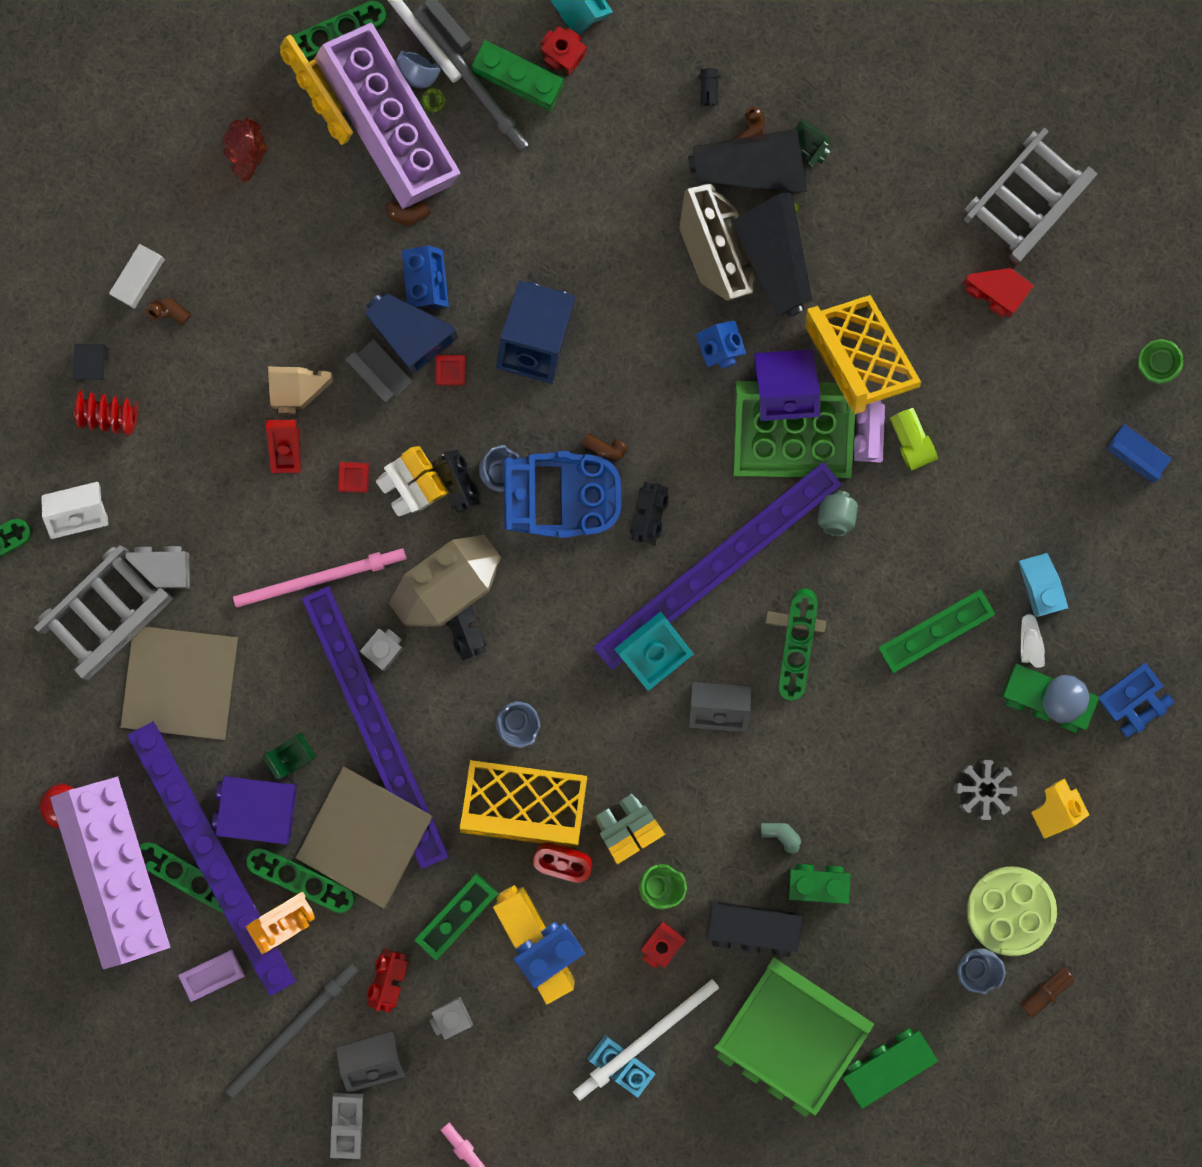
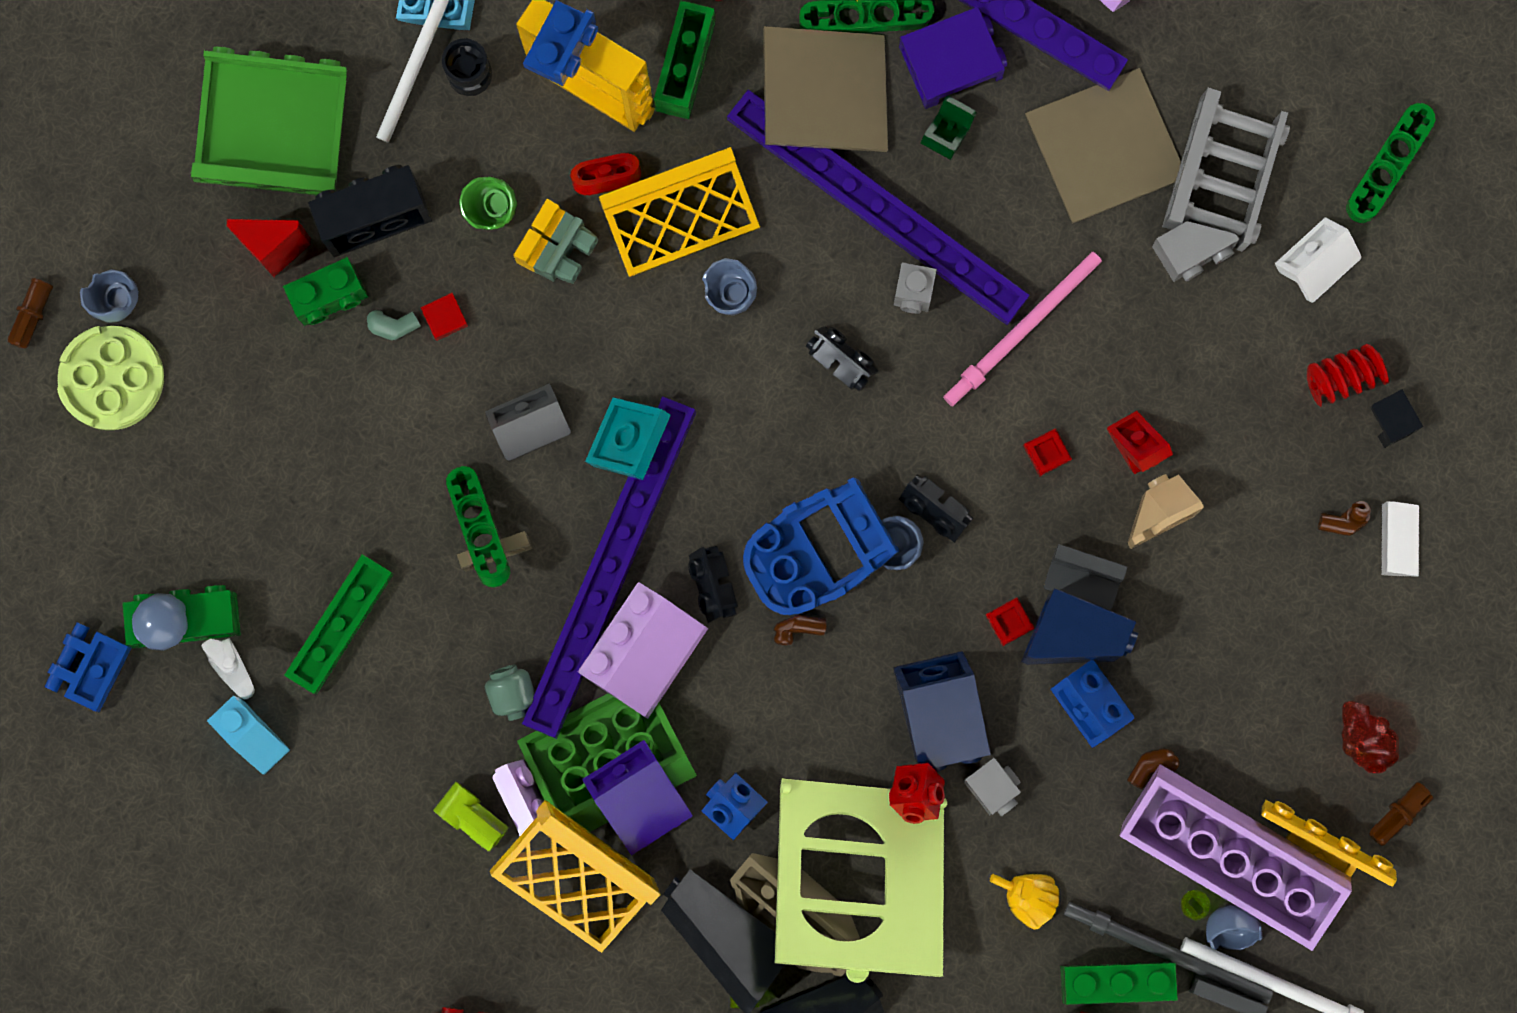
camera: 155 degrees right, 5 degrees down
(251, 84) = (1401, 813): none -> reddish brown axle
(331, 26) = (1351, 925): green beam -> none
(402, 474) = (974, 466): hips -> none
(446, 582) = (885, 393): dark tan wedge -> none
(528, 258) = (994, 787): none -> light grey brick
(545, 168) = (1030, 897): none -> yellow piece
(586, 280) = (917, 792): none -> red brick
(611, 244) = (914, 884): none -> yellowish green door
(622, 1001) = (467, 67): none -> black wheel
(665, 934) = (458, 158): red brick -> none
(726, 489) = (642, 650): none -> lavender slope
(740, 821) = (444, 316): none -> red tile
(842, 942) = (271, 241): none -> red slope
(888, 1066) = (156, 149): green brick -> none
(985, 799) = (194, 497): light grey gear -> none
(1061, 809) = (108, 505): yellow brick -> none
(1138, 453) = (217, 937): blue panel -> none

